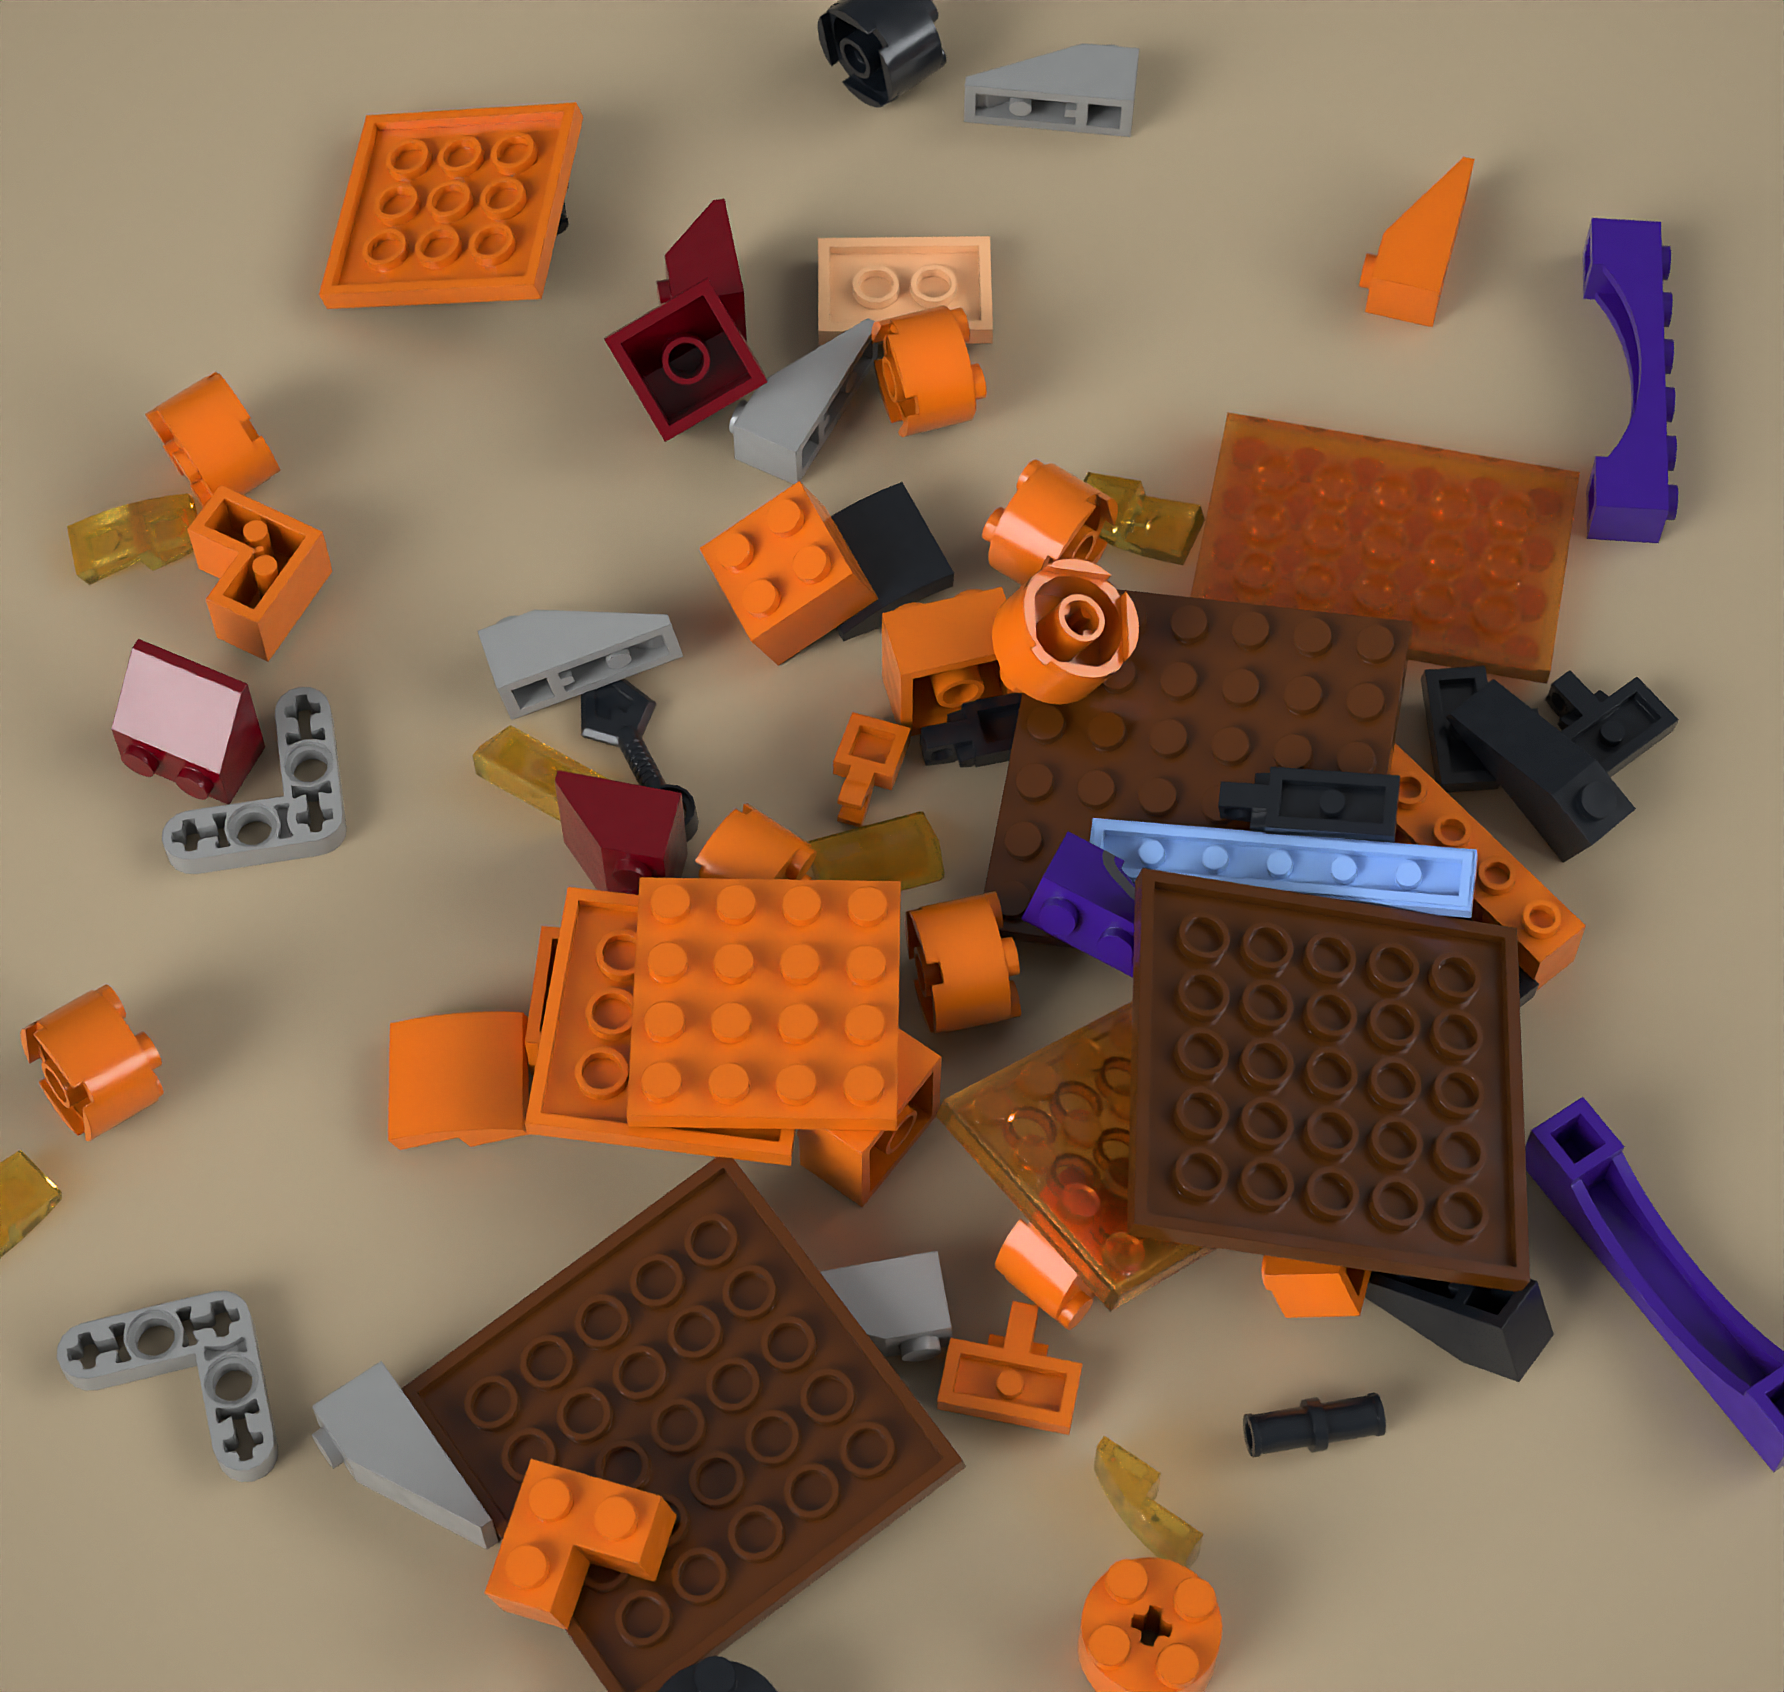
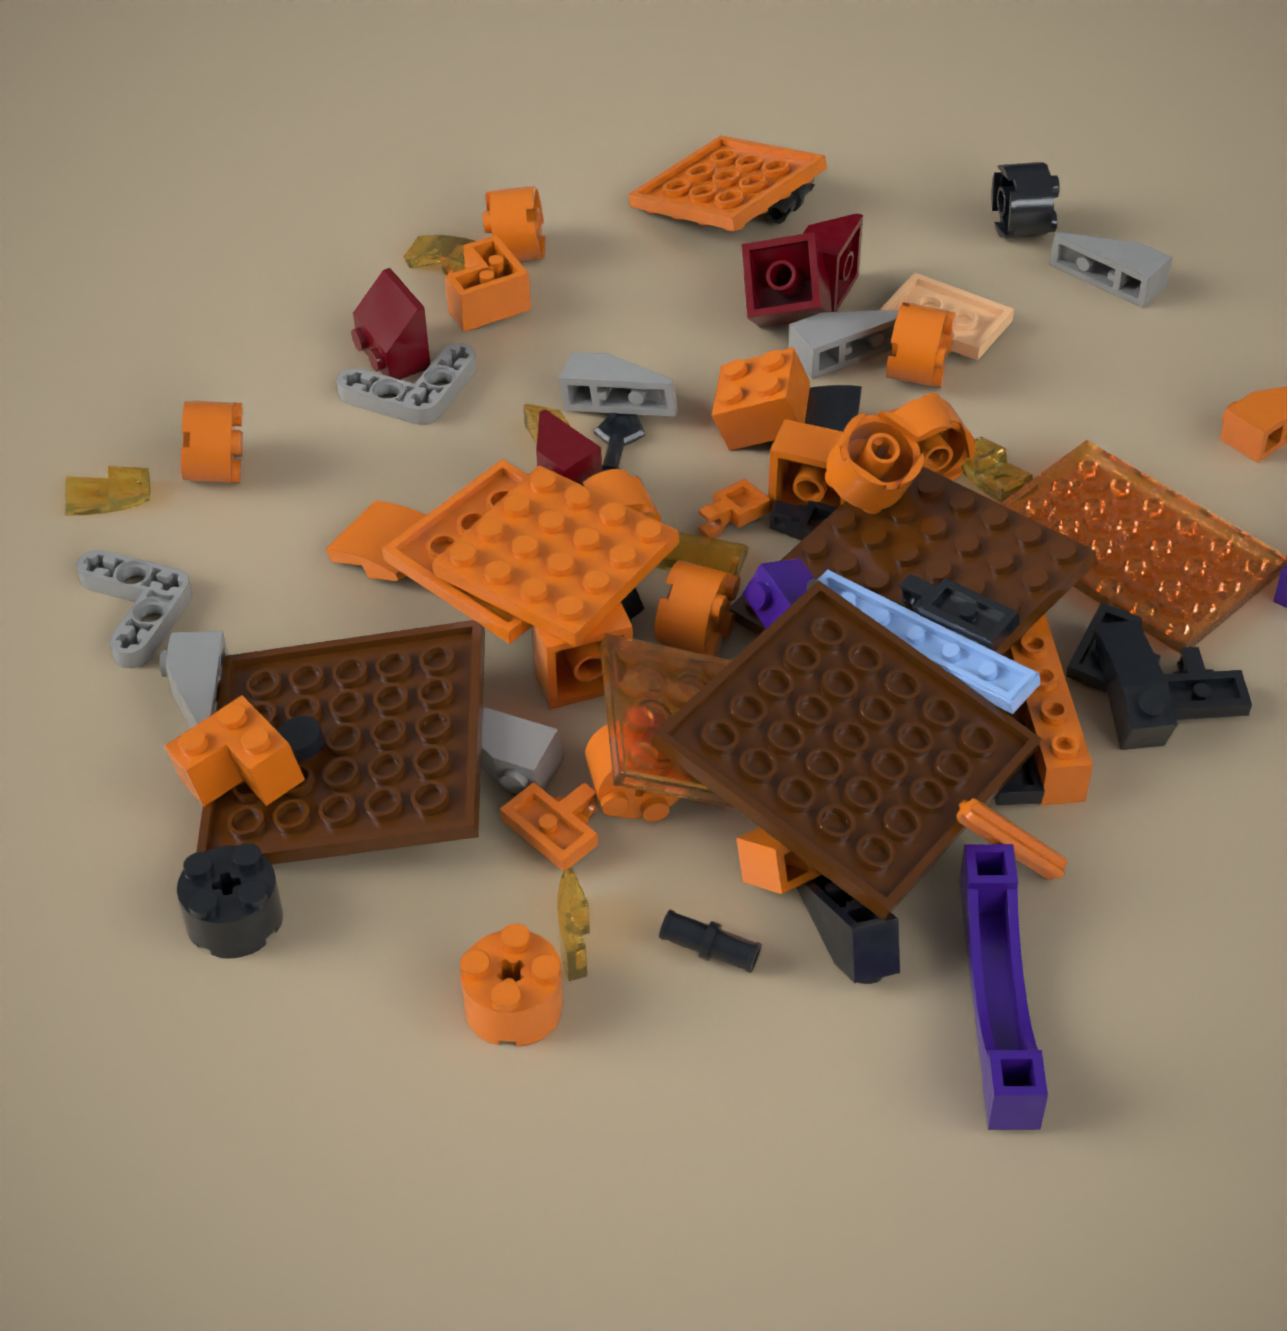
camera: 35 degrees right, 15 degrees down
(629, 1459) = (303, 735): none -> black tile
(1567, 1085) = (1000, 830): none -> orange axle

